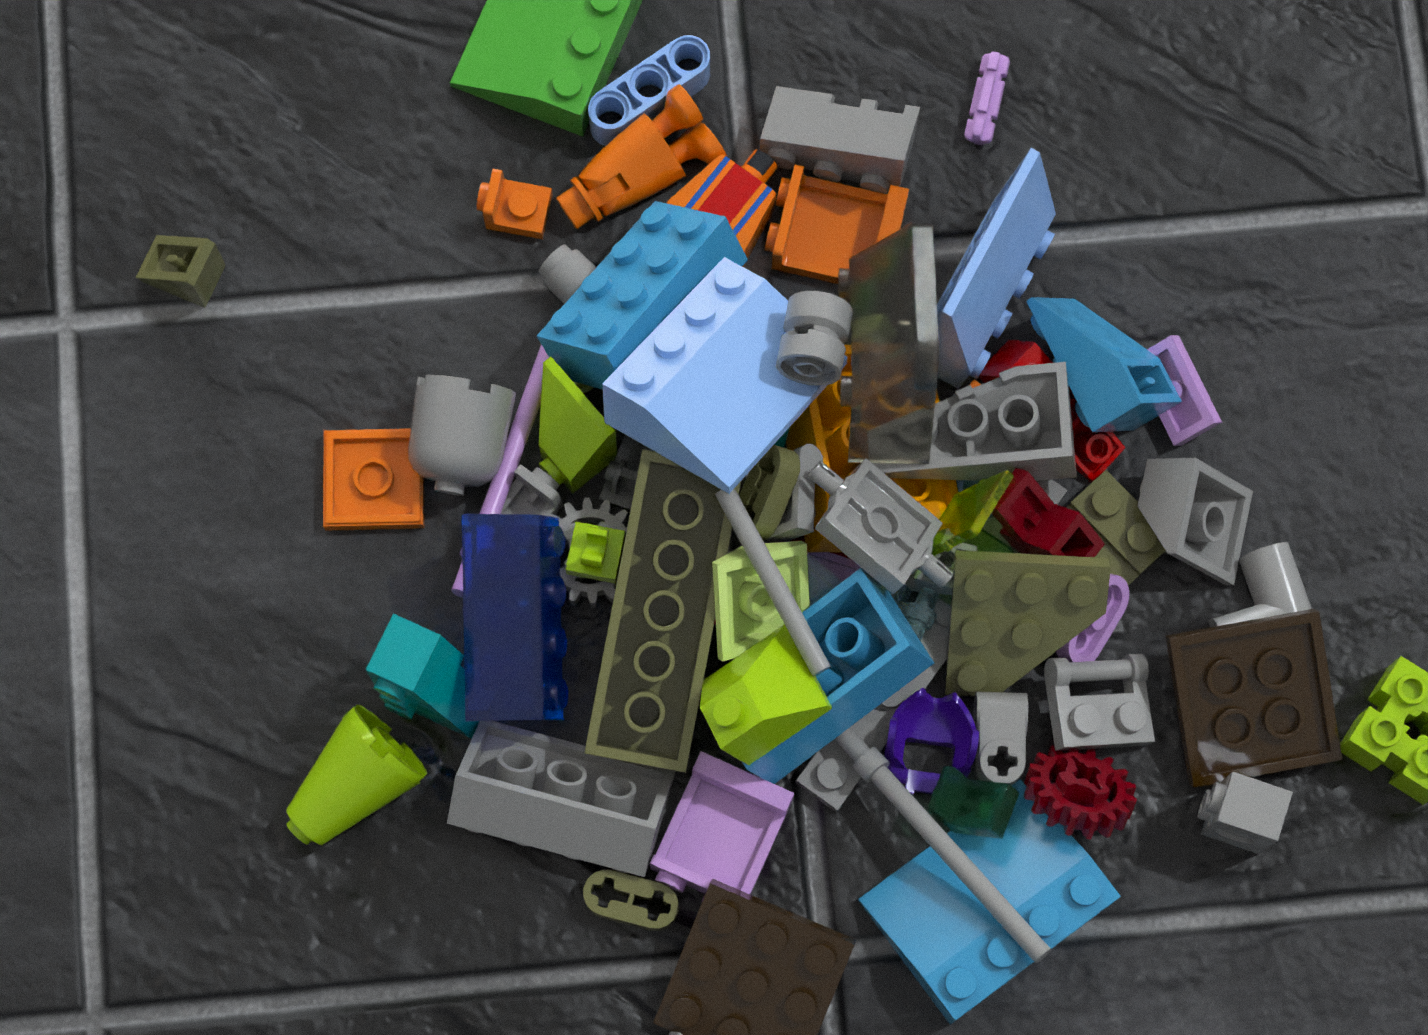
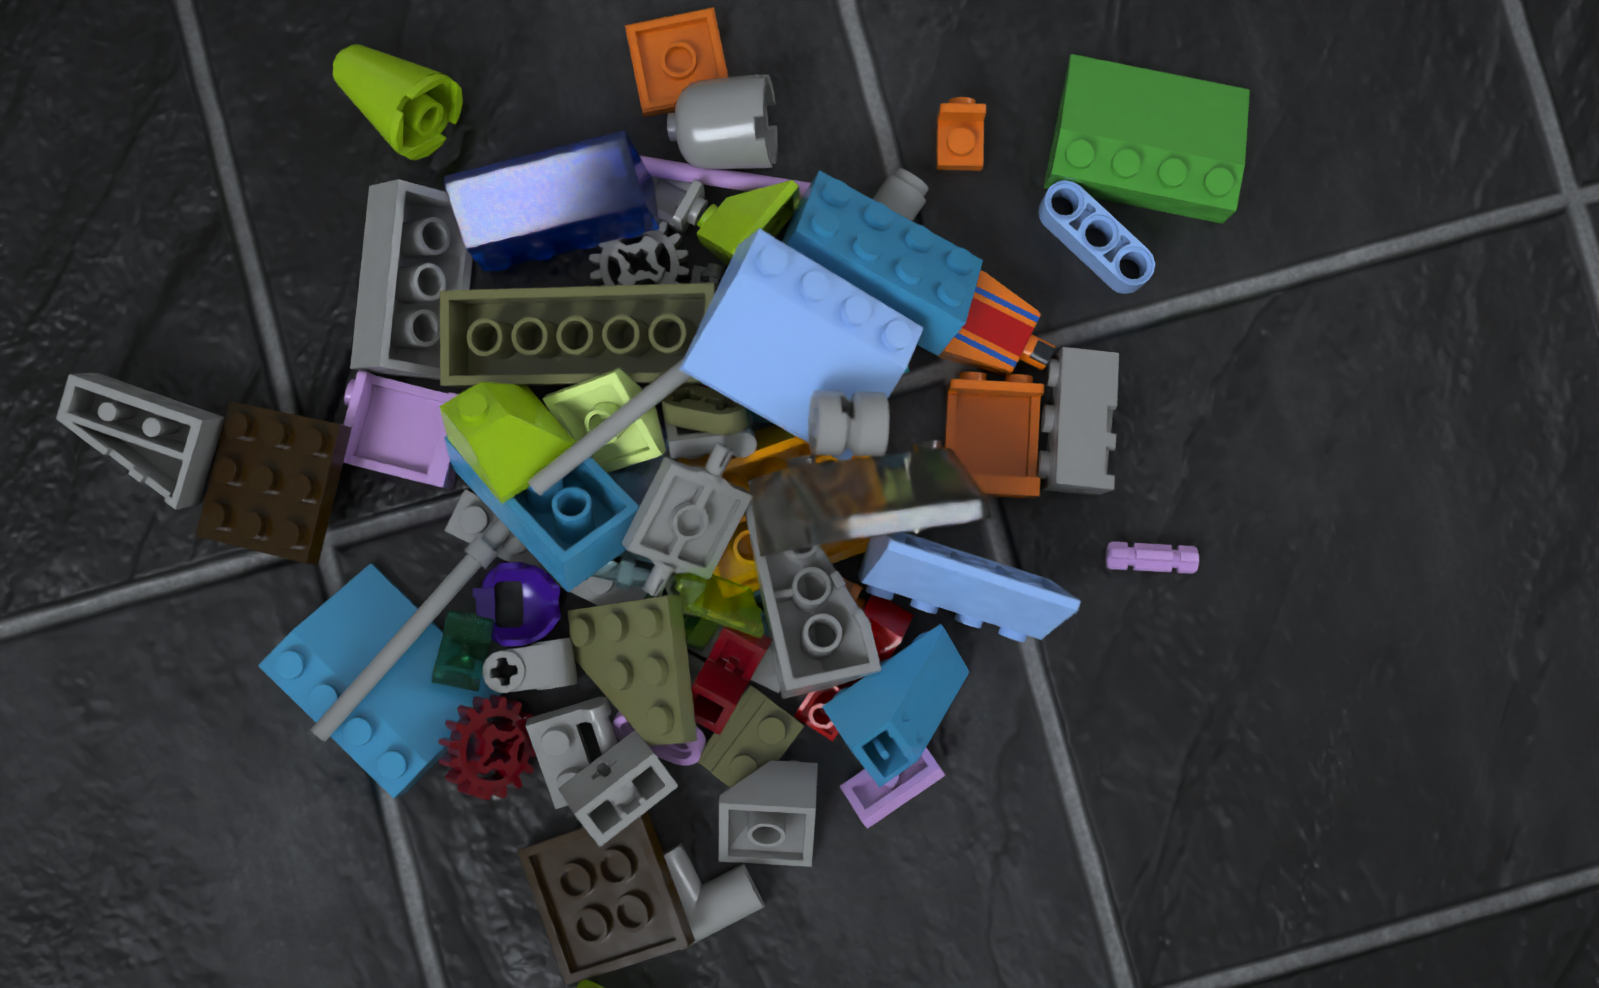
camera: 85 degrees right, 10 degrees up
(420, 675) = (484, 121): teal wedge -> none
(595, 552) = (630, 263): lime tile -> none
(634, 888) = (324, 361): olive beam -> none
(641, 161) = (1023, 242): orange piece -> none
(1144, 654) = (617, 788): none -> light grey brick
(1244, 812) = (492, 902): light grey brick -> none

